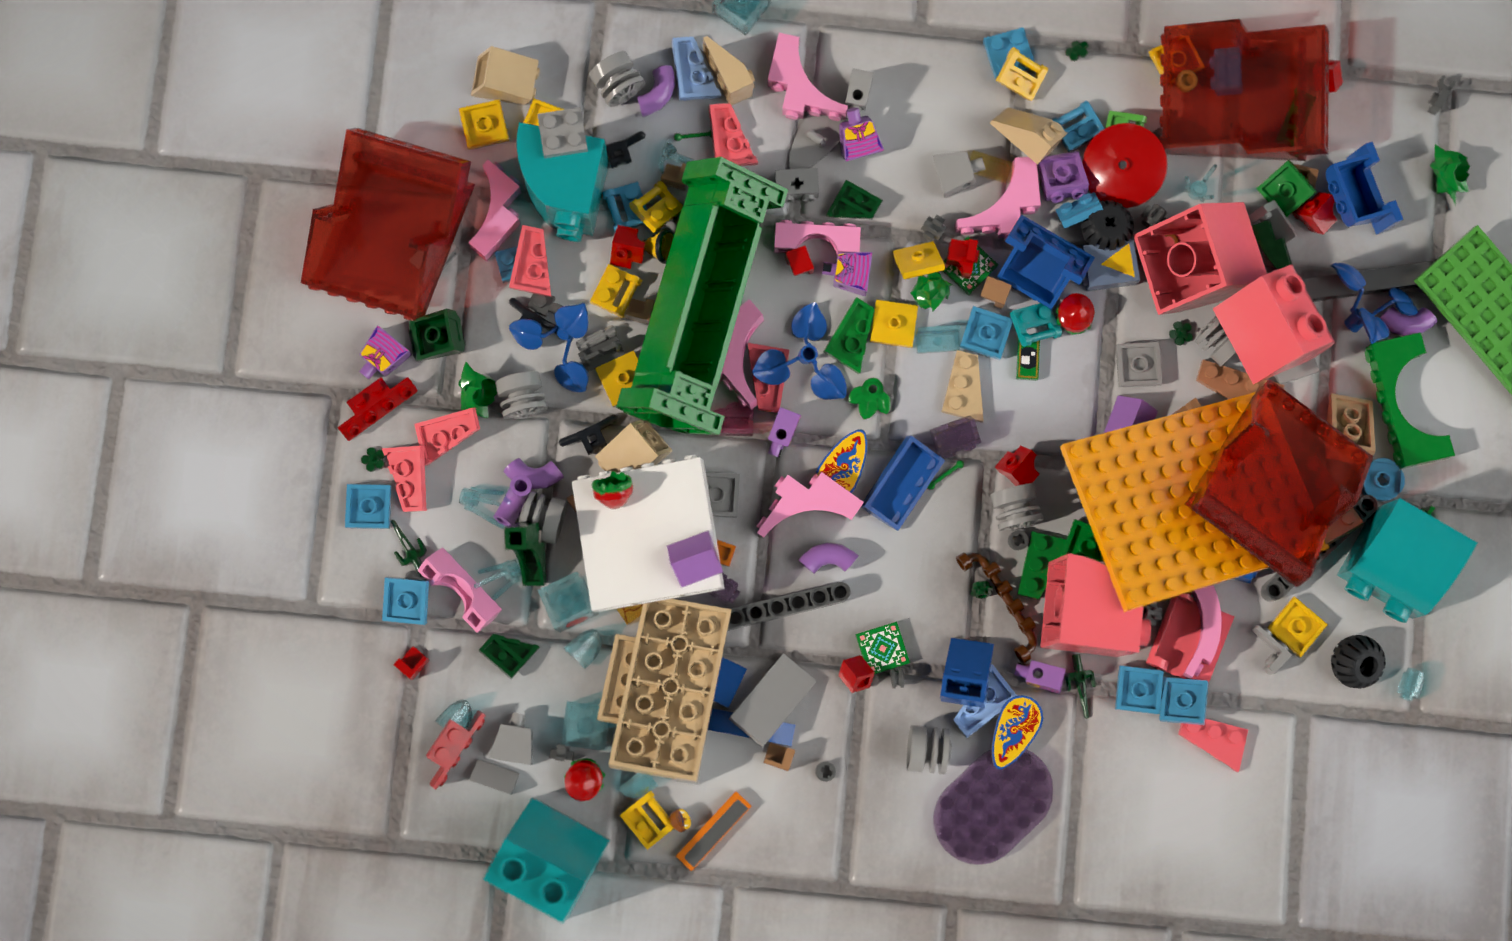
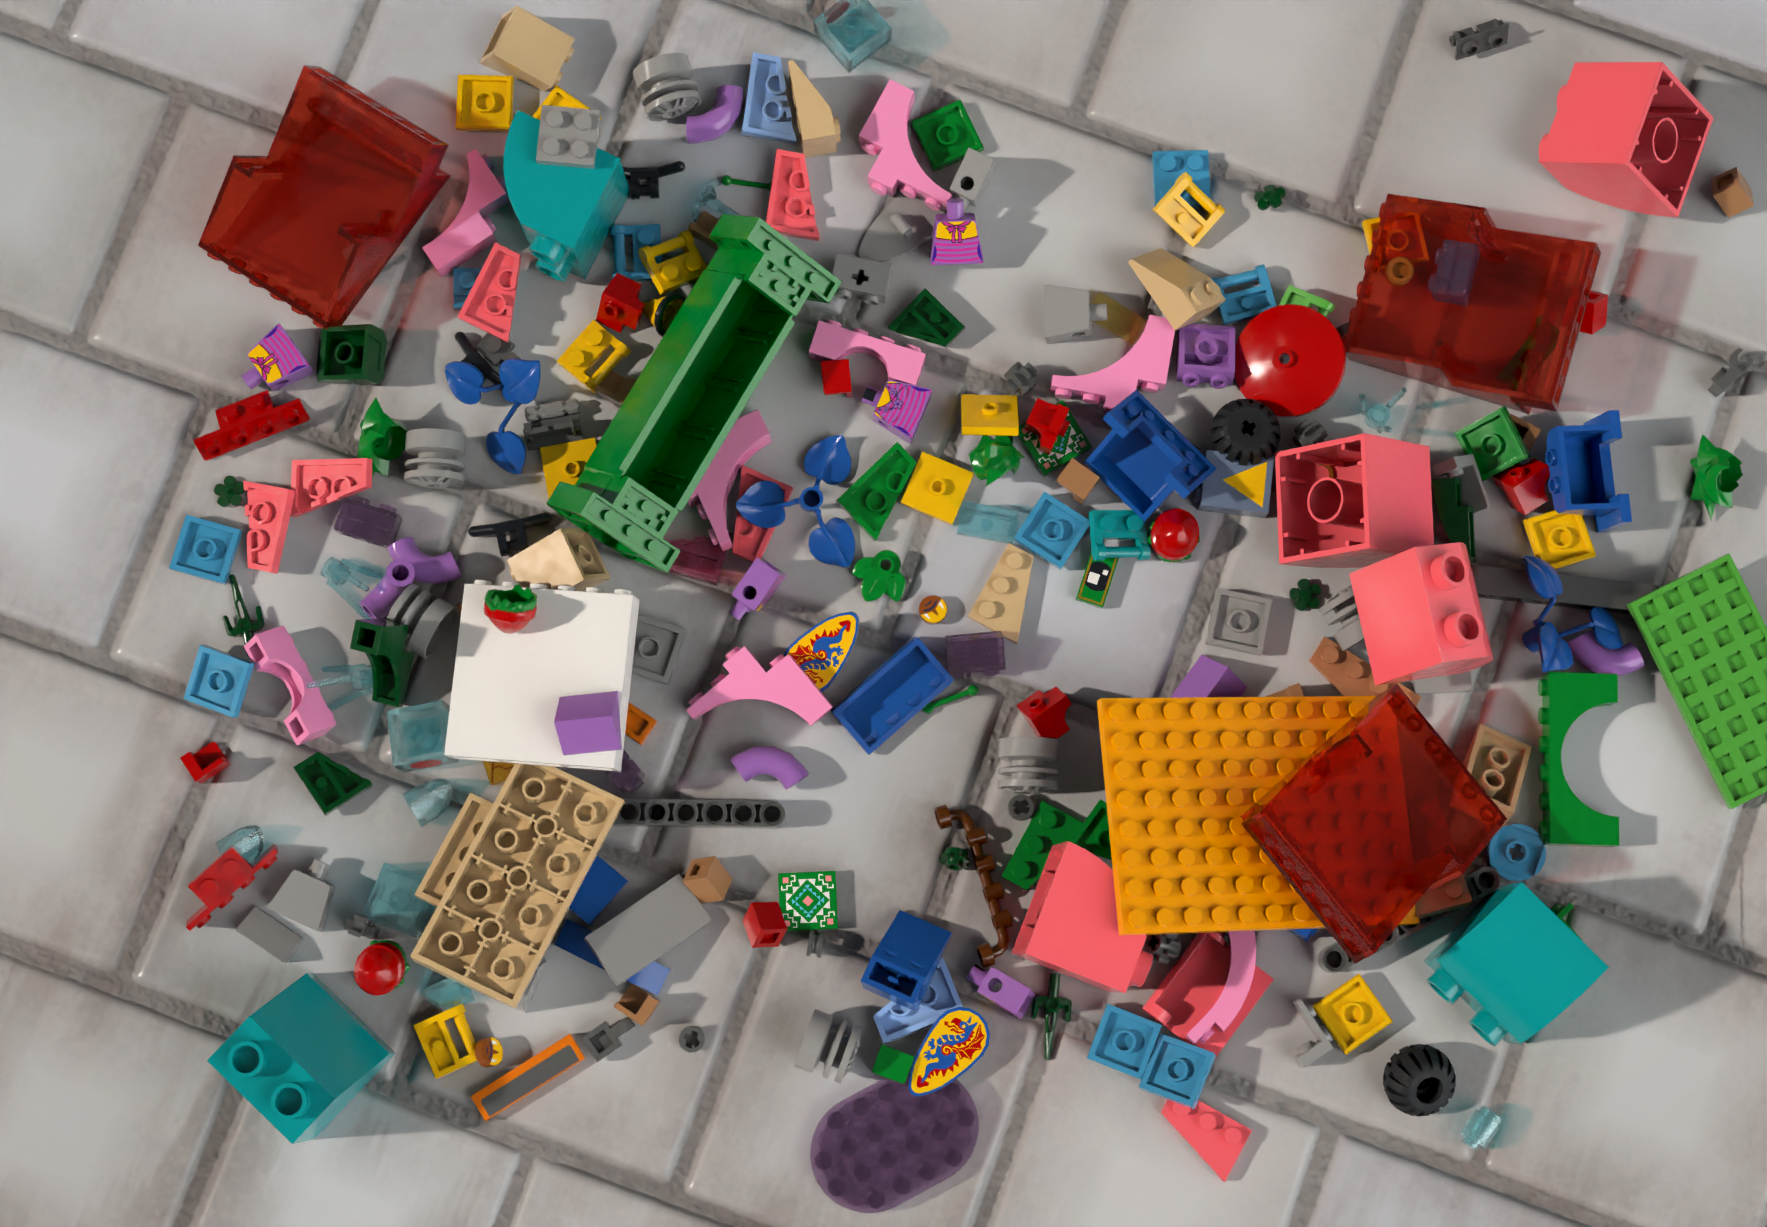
camera: 20 degrees right, 0 degrees up
(483, 455) = (367, 522): none -> clear purple brick
(762, 788) = (605, 1039): none -> dark grey plate
(805, 652) = (707, 879): none -> medium nougat panel
(830, 64) = (946, 135): none -> green tile
(915, 413) = (932, 609): none -> tile
(977, 750) = (892, 1064): none -> green panel
(1078, 210) = (1213, 403): dark azure plate -> none
(1352, 245) = (1559, 538): none -> yellow plate

